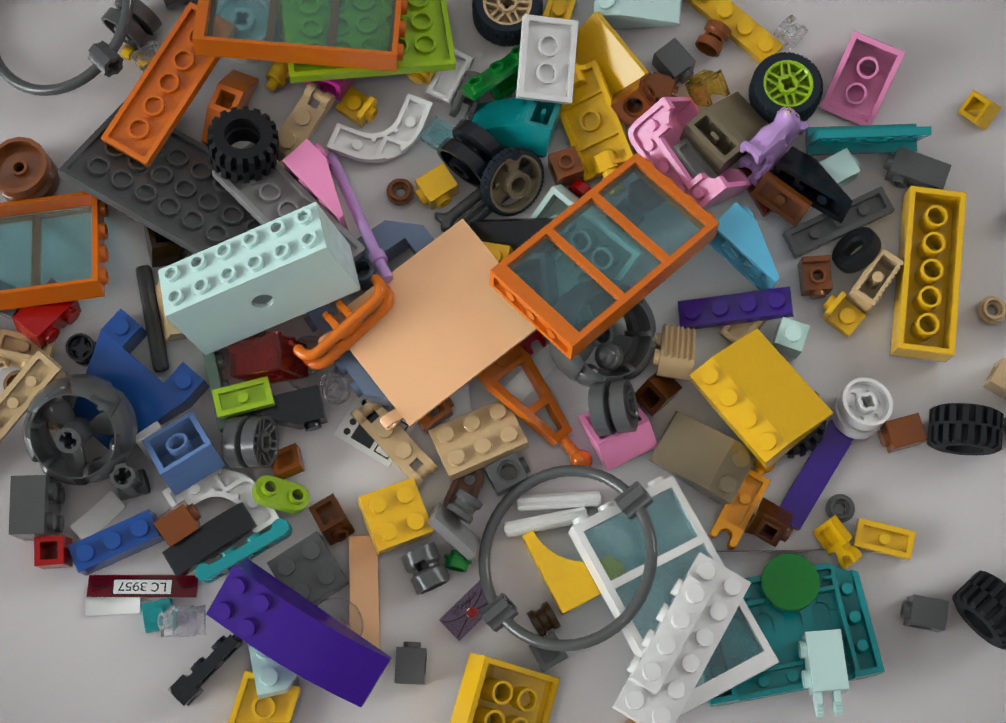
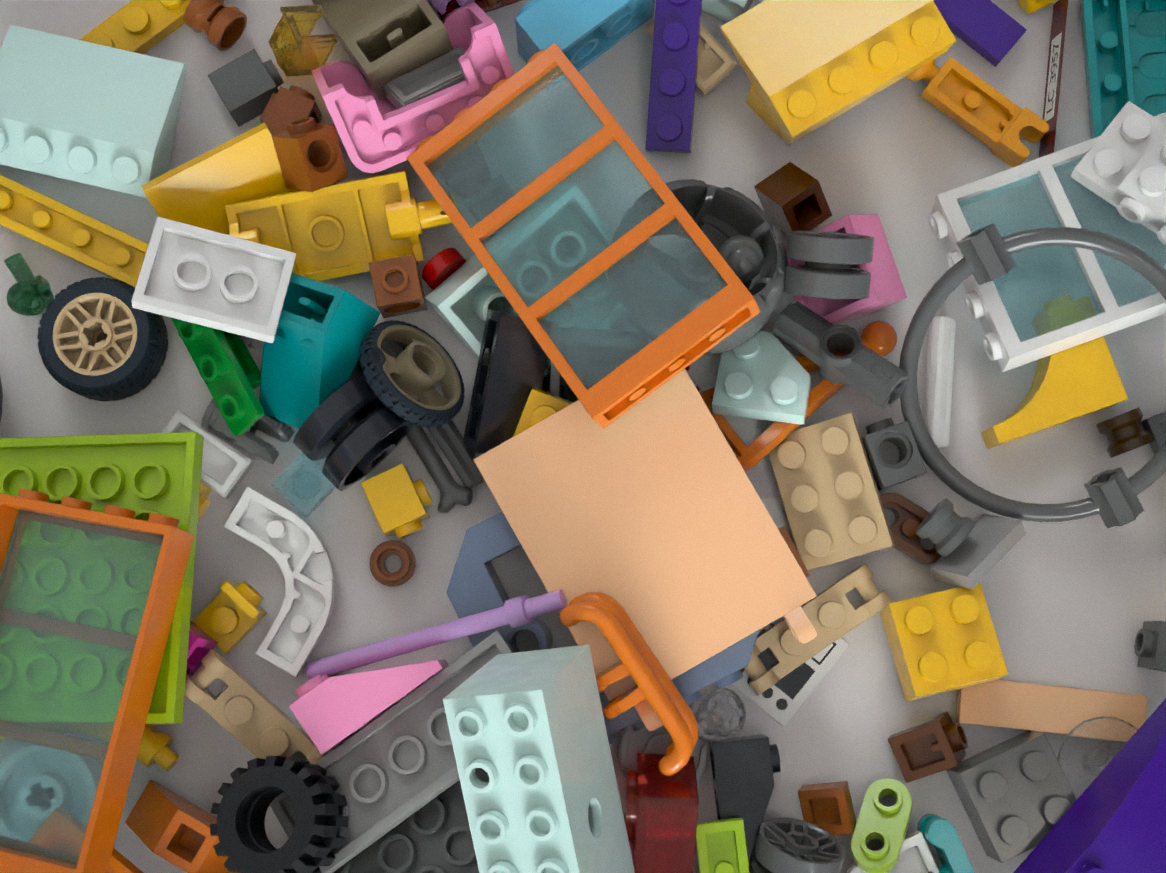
camera: 85 degrees left, 5 degrees up
(429, 578) = (1036, 602): dark grey wheel -> none
(456, 561) = (1020, 556): green plate -> none
(465, 613) = (1097, 551): clear purple tile -> none
(539, 387) = (762, 382): none -> light aqua plate
(542, 522) = (970, 408): white axle -> none
(555, 441) = (859, 369): none -> dark grey piece
(675, 352) = (737, 158): tan brick -> none
(703, 458) = (907, 147): dark tan slope -> none
(770, 523) = (1020, 64): reddish brown window -> none
(790, 582) = (1112, 54): green tile -> none

